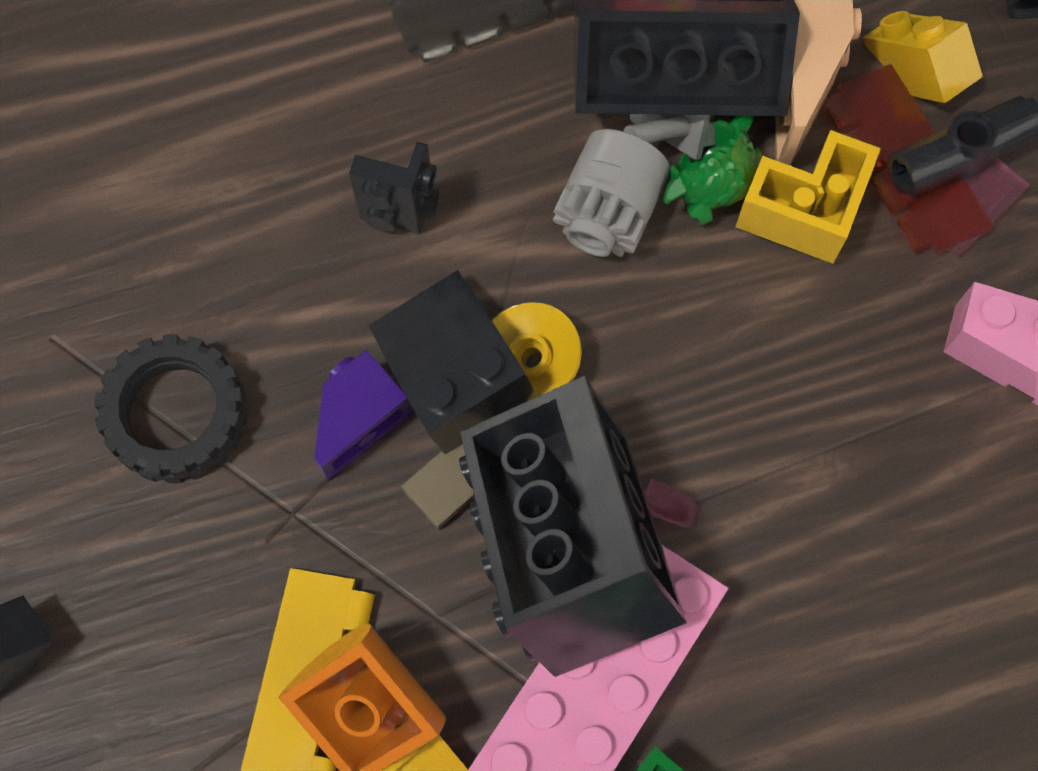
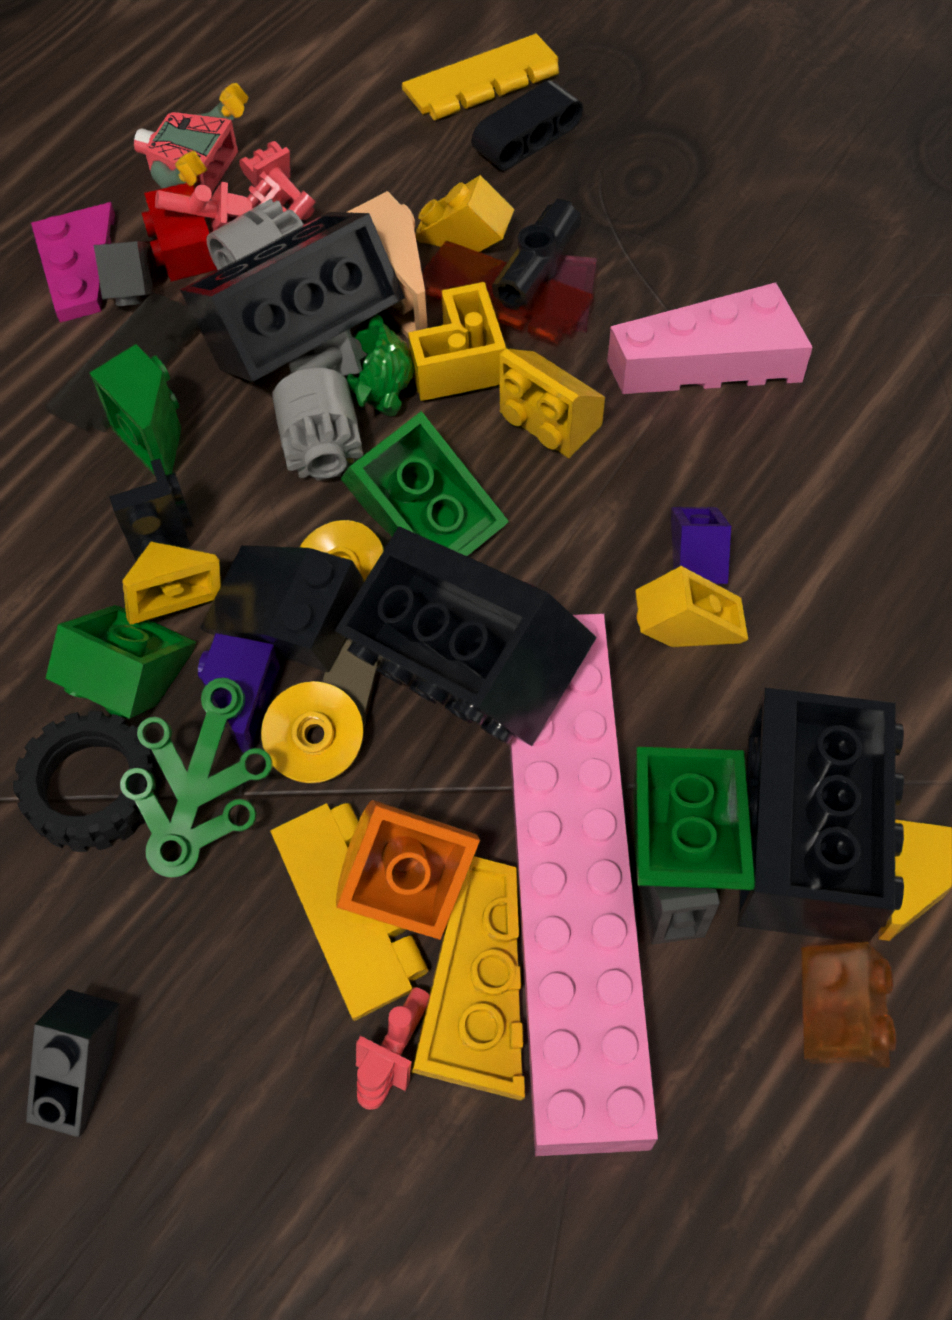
camera: 35 degrees left, 10 degrees down
(247, 484) = (193, 786): none -> green plant
(274, 310) = (117, 662): none -> green slope
(361, 499) = (298, 711): none -> yellow dish
(365, 263) = (169, 581): none -> yellow slope
(463, 69) = (140, 405): none -> green slope
(660, 338) = (424, 488): none -> green slope
(824, 638) = (689, 611): none -> yellow slope
(854, 316) = (548, 401): none -> yellow slope
(888, 575) = (701, 542): none -> dark purple slope

